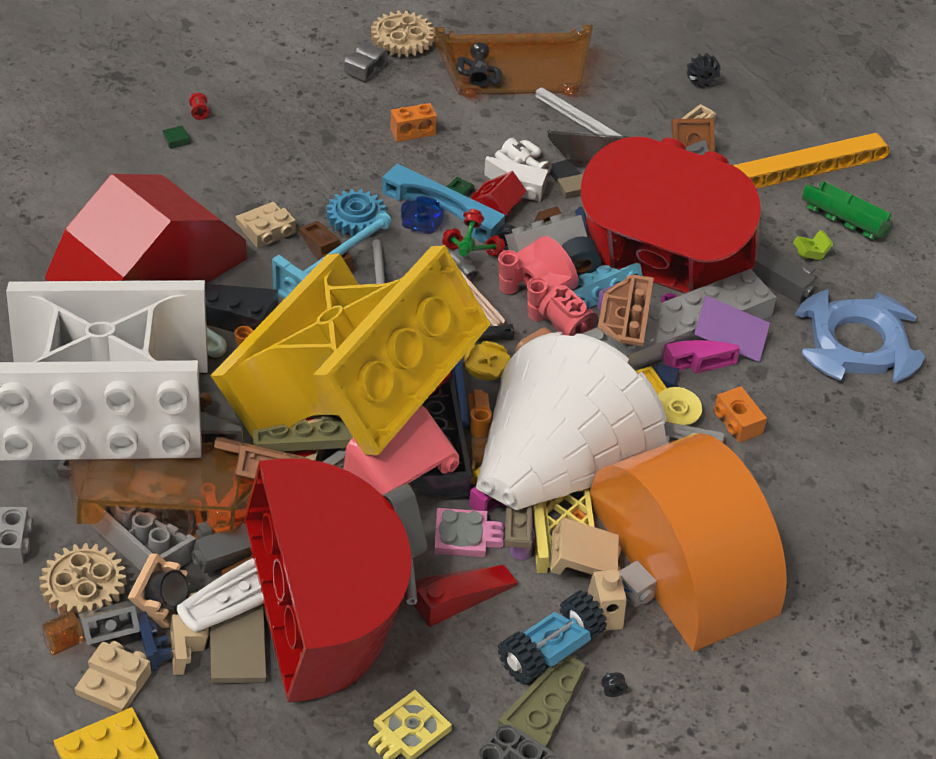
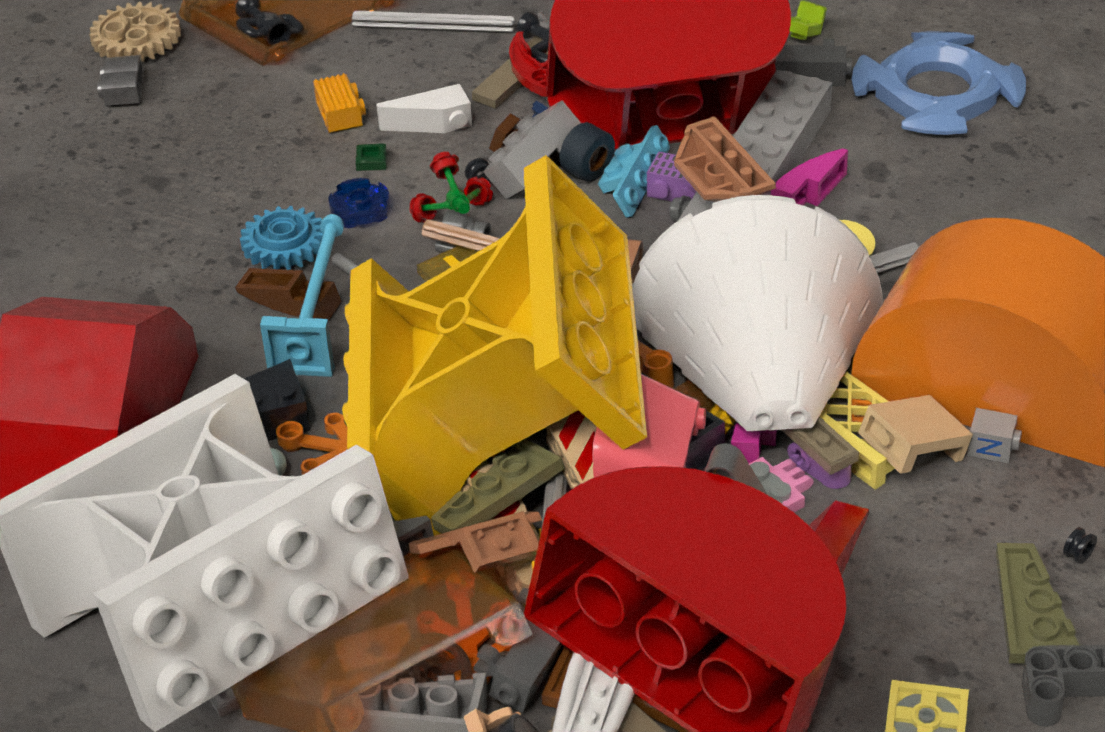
camera: 30 degrees left, 5 degrees down
(266, 224) = (194, 300): tan plate -> none
(406, 184) = (314, 179): dark azure arch -> none
(413, 122) = (249, 113): orange brick -> none
(472, 143) = (339, 103): none -> light orange brick
(501, 193) = (421, 138): red slope -> none
(522, 153) = (406, 83): white piece -> none
(549, 284) = (635, 205): coral piece -> none
(552, 637) = (976, 535): plate -> none
(563, 169) = (468, 79): black piece -> none
(580, 146) = (475, 41): clear smoke wedge -> none
(608, 590) = (986, 464): tan torso -> none
(733, 326) = (817, 133): medium lavender window -> none
(740, 414) = (910, 214): orange brick -> none

